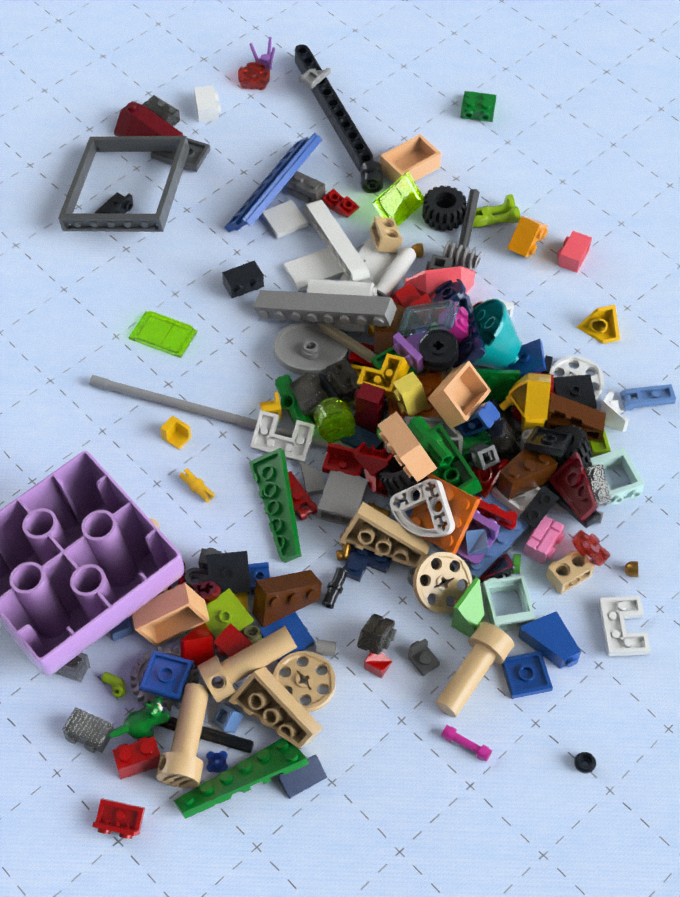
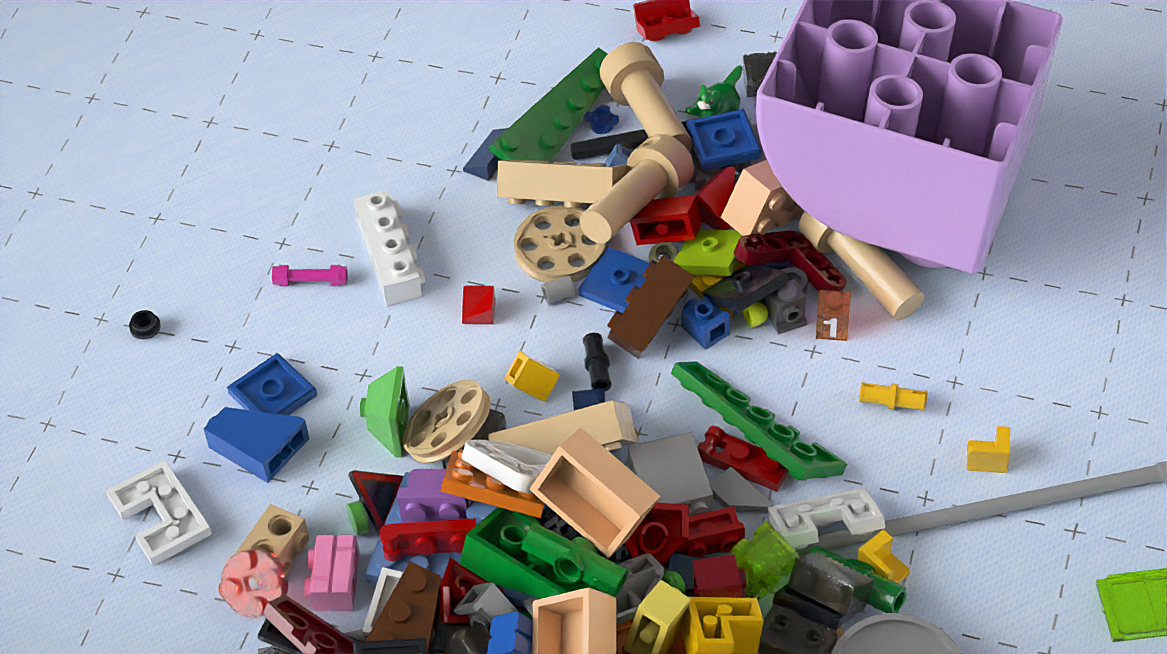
camera: 155 degrees right, 5 degrees down
(137, 757) = (696, 67): red brick -> none
(190, 542) = (833, 315): none -> clear orange brick
(376, 597) = (532, 376): none -> yellow panel
(377, 634) = (496, 316): clear smoke brick -> none
(409, 733) = (388, 247): none -> white brick
(422, 657) = (422, 341): dark grey bracket -> none
(476, 541) = (422, 478): medium blue slope -> none
(488, 647) = (337, 372): tan piece -> none
(511, 621) = (336, 426): light aqua window -> none
(538, 507) = (356, 593): black bracket -> none
(631, 569) = (176, 602): pearl gold hinge -> none

